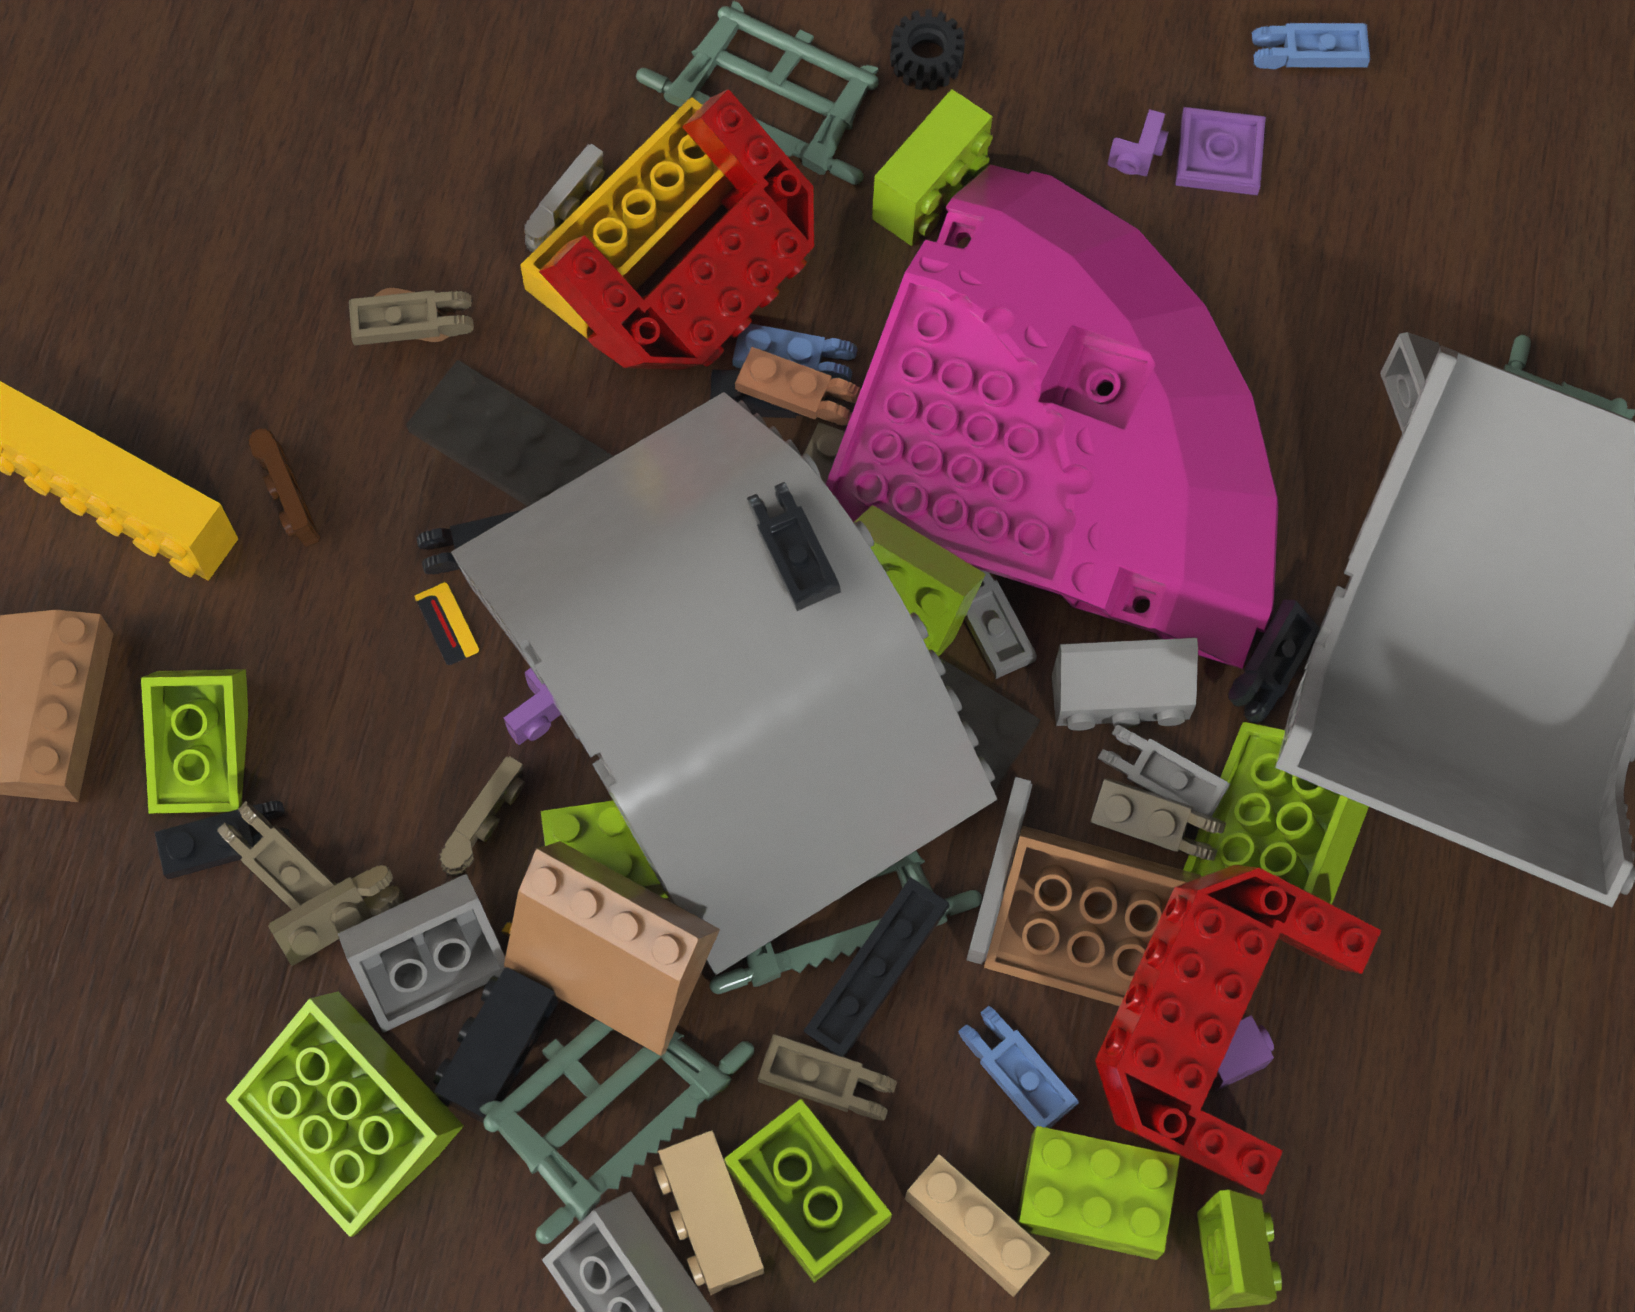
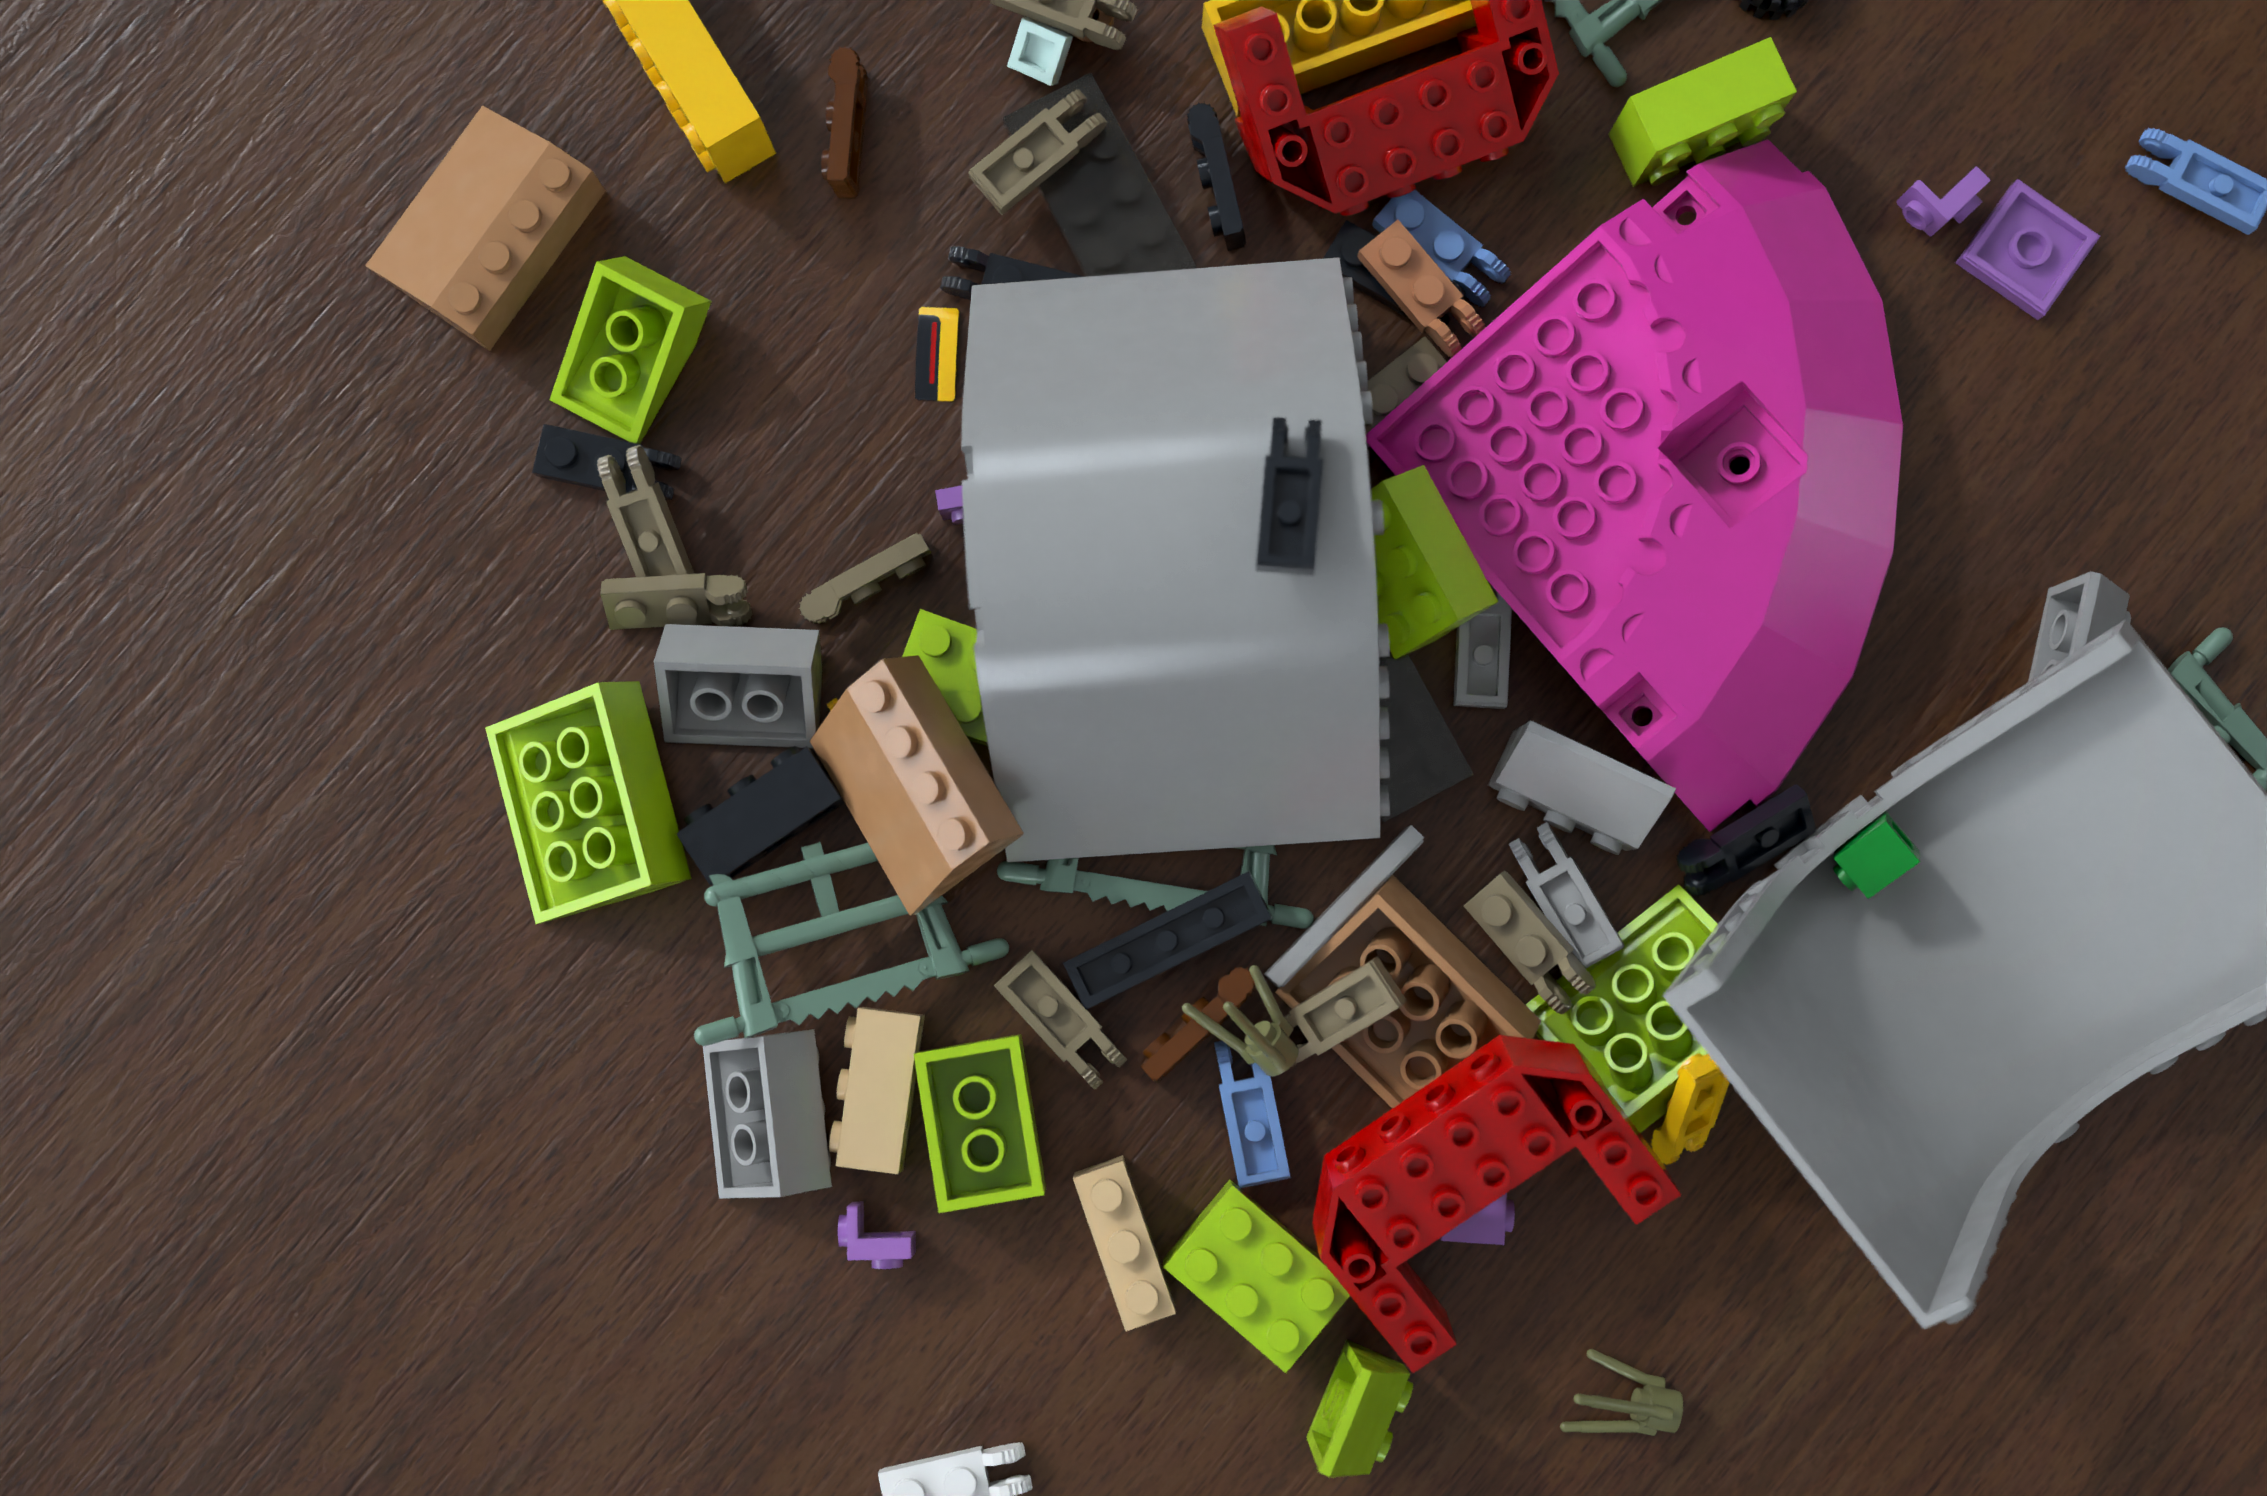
camera: 30 degrees right, 15 degrees up
(410, 362) = (1040, 51): none -> light aqua plate
(447, 434) = (1034, 153): none -> dark tan hinge
(596, 384) = (1215, 173): none -> black hinge
(939, 1019) = (1168, 1052): none -> reddish brown hinge
(1000, 998) = (1265, 1042): none -> olive plant
(1041, 947) = (1345, 1008): none -> dark tan hinge
(1352, 864) = (1691, 1108): none -> yellow hinge
(1372, 619) = (1875, 856): none -> green brick
(1461, 1127) = (1649, 1407): none -> olive plant

